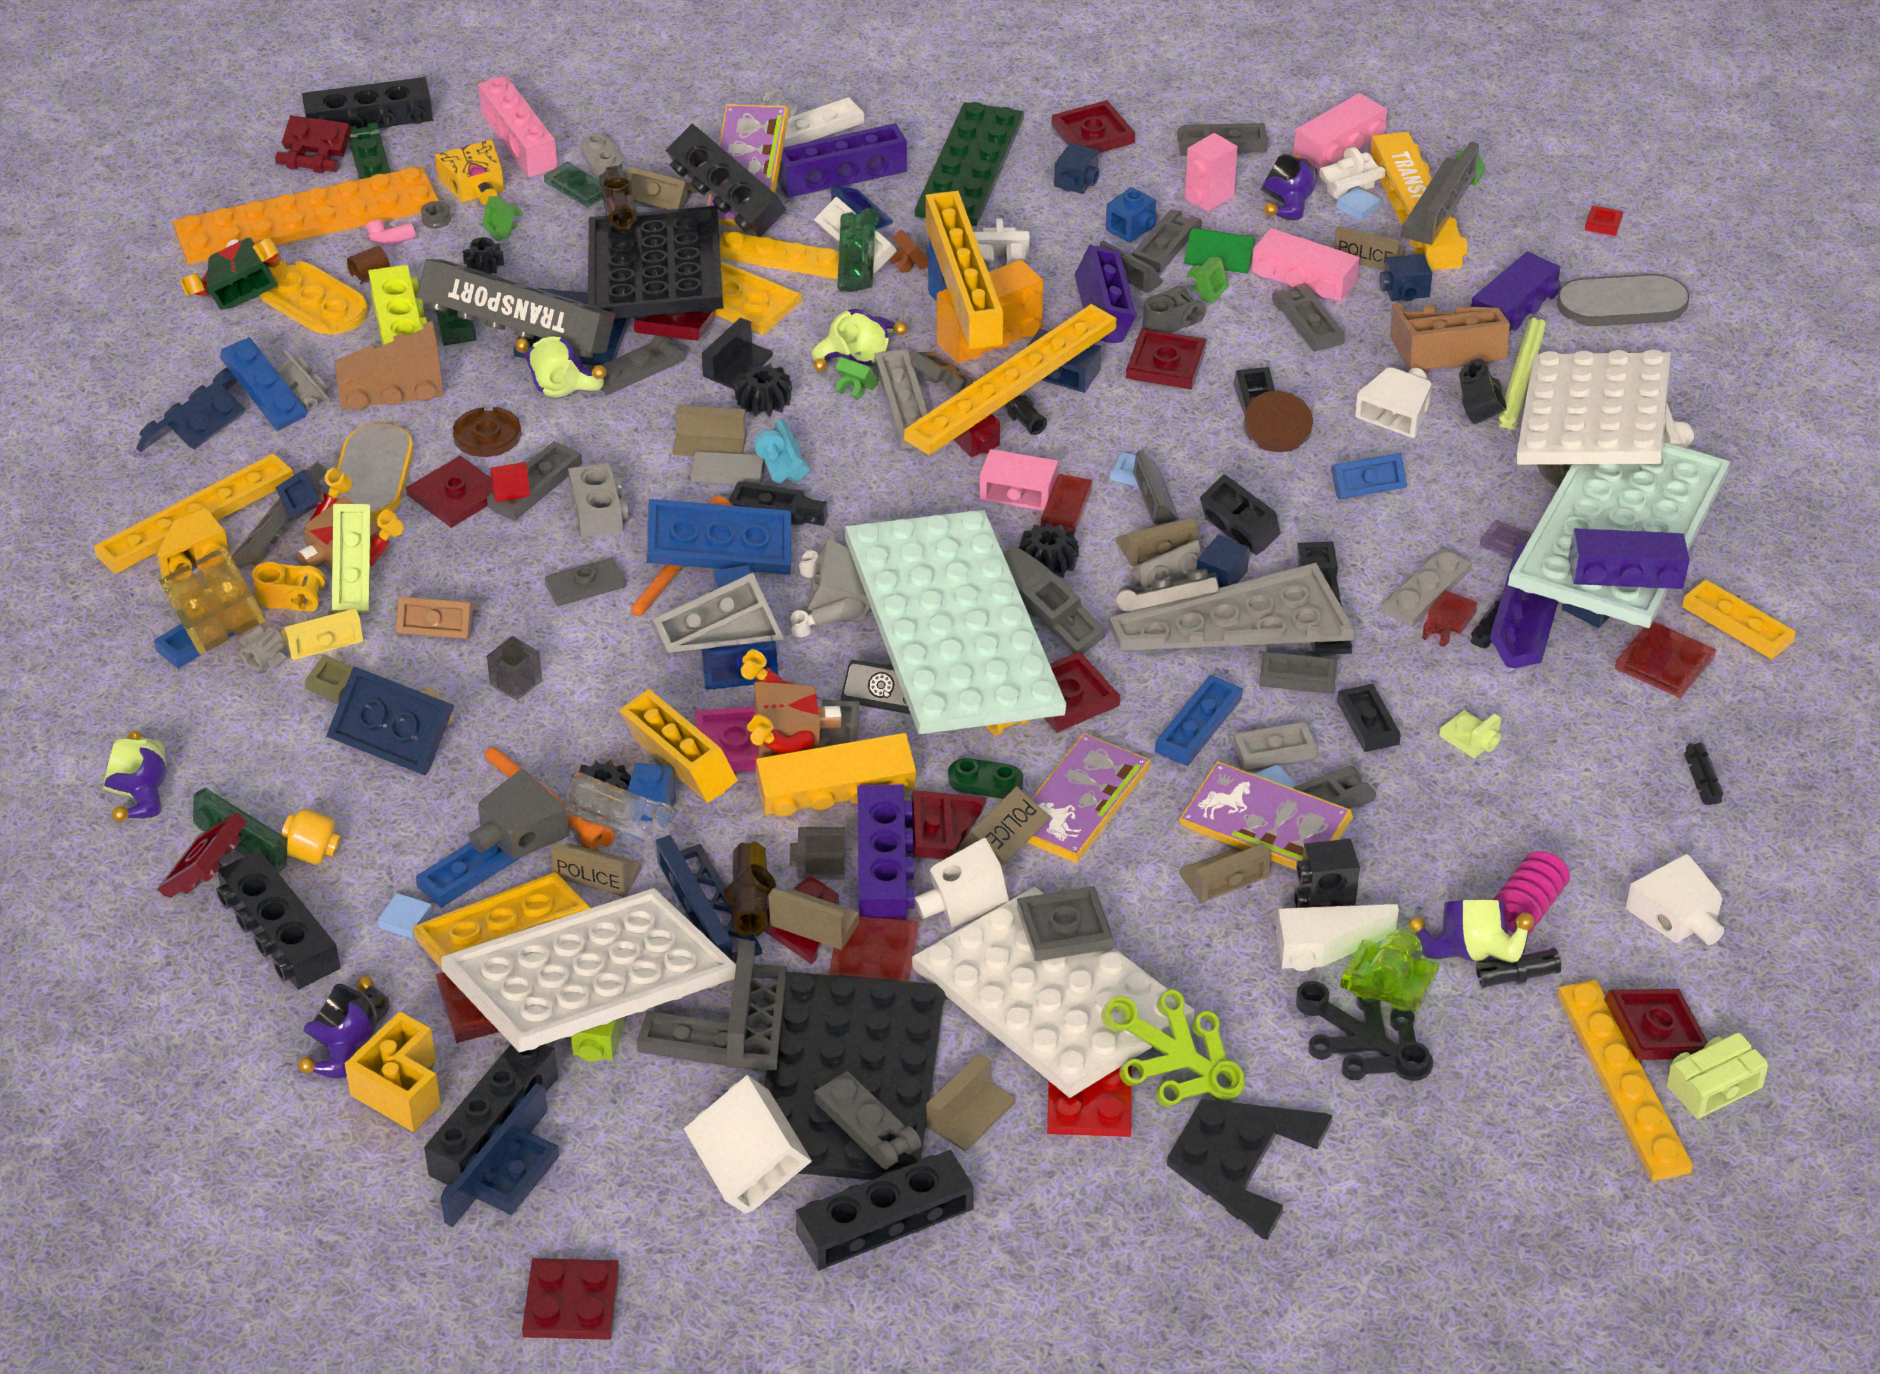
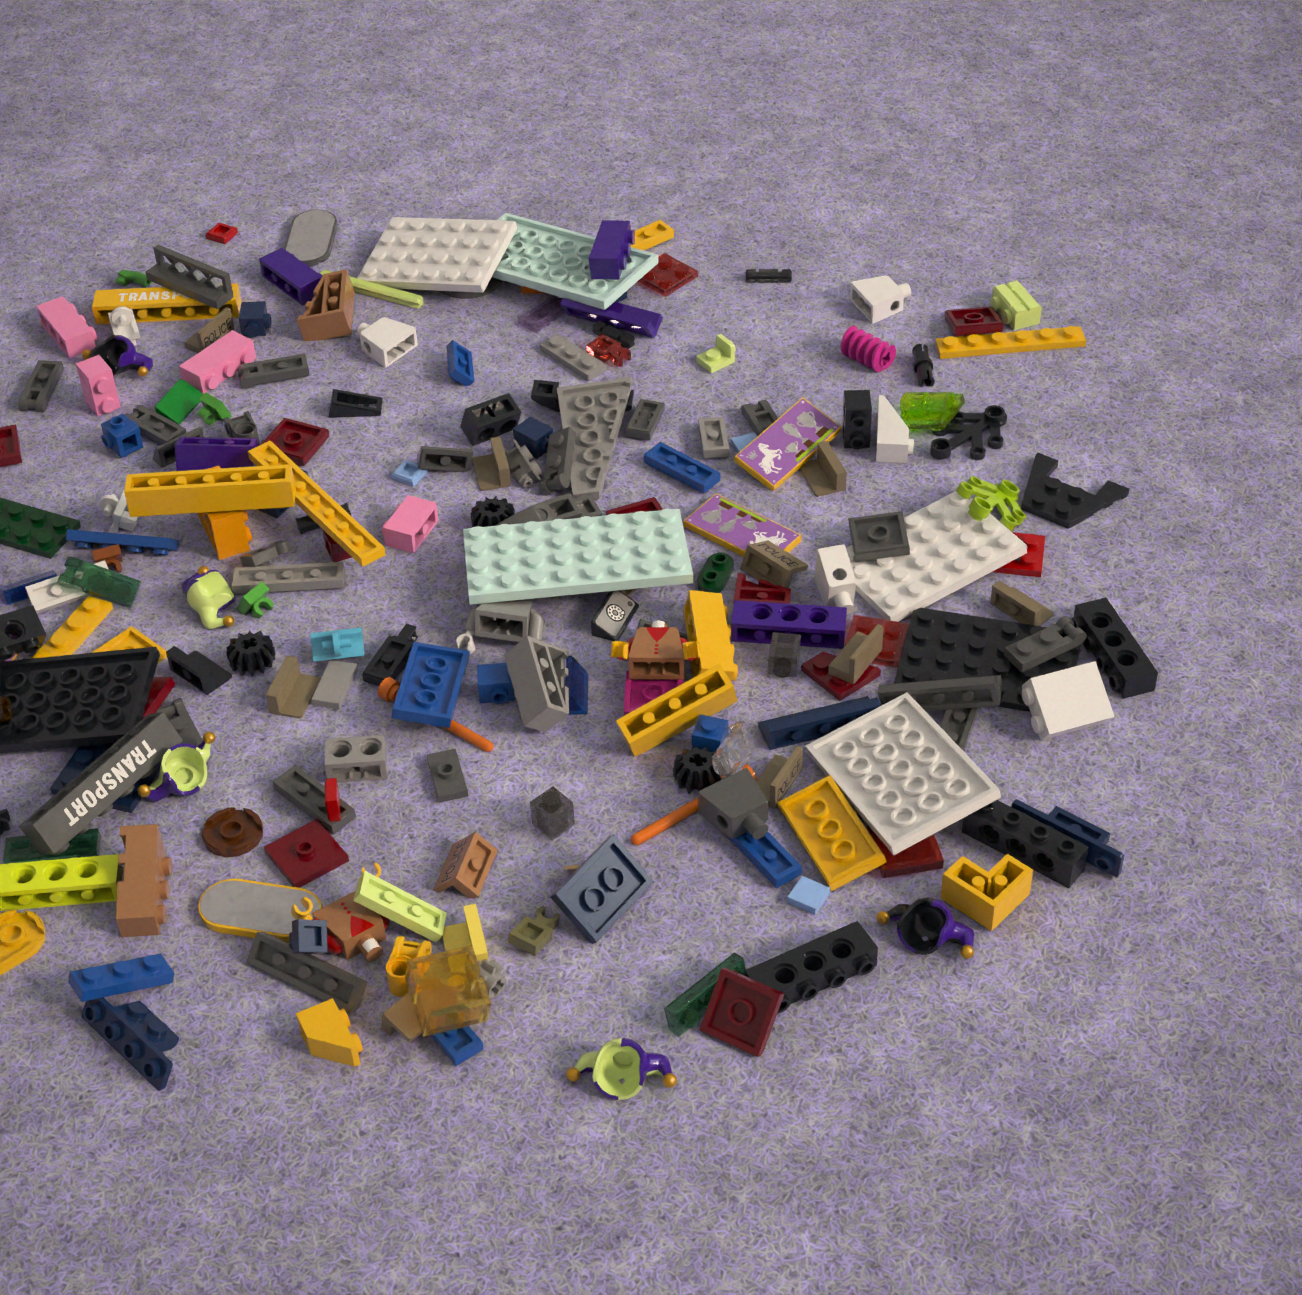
camera: 80 degrees left, 0 degrees up
(219, 499) = (281, 1037): yellow plate -> none
(306, 388) = (127, 948): light grey hinge -> none
(310, 836) = (719, 944): yellow head -> none
(571, 1299) = (1184, 811): dark red plate -> none
(749, 889) = (820, 689): dark brown piece -> none
(1067, 502) = (448, 507): clear red plate -> none
(1076, 168) = (44, 459): dark blue brick -> none
(1278, 421) = (387, 396): reddish brown tile -> none
(1359, 203) = (151, 333): light blue tile -> none
(1368, 717) = (695, 395): black plate -> none
(1474, 932) = (904, 369): piece -> none
(1480, 392) = (397, 303): black piece -> none

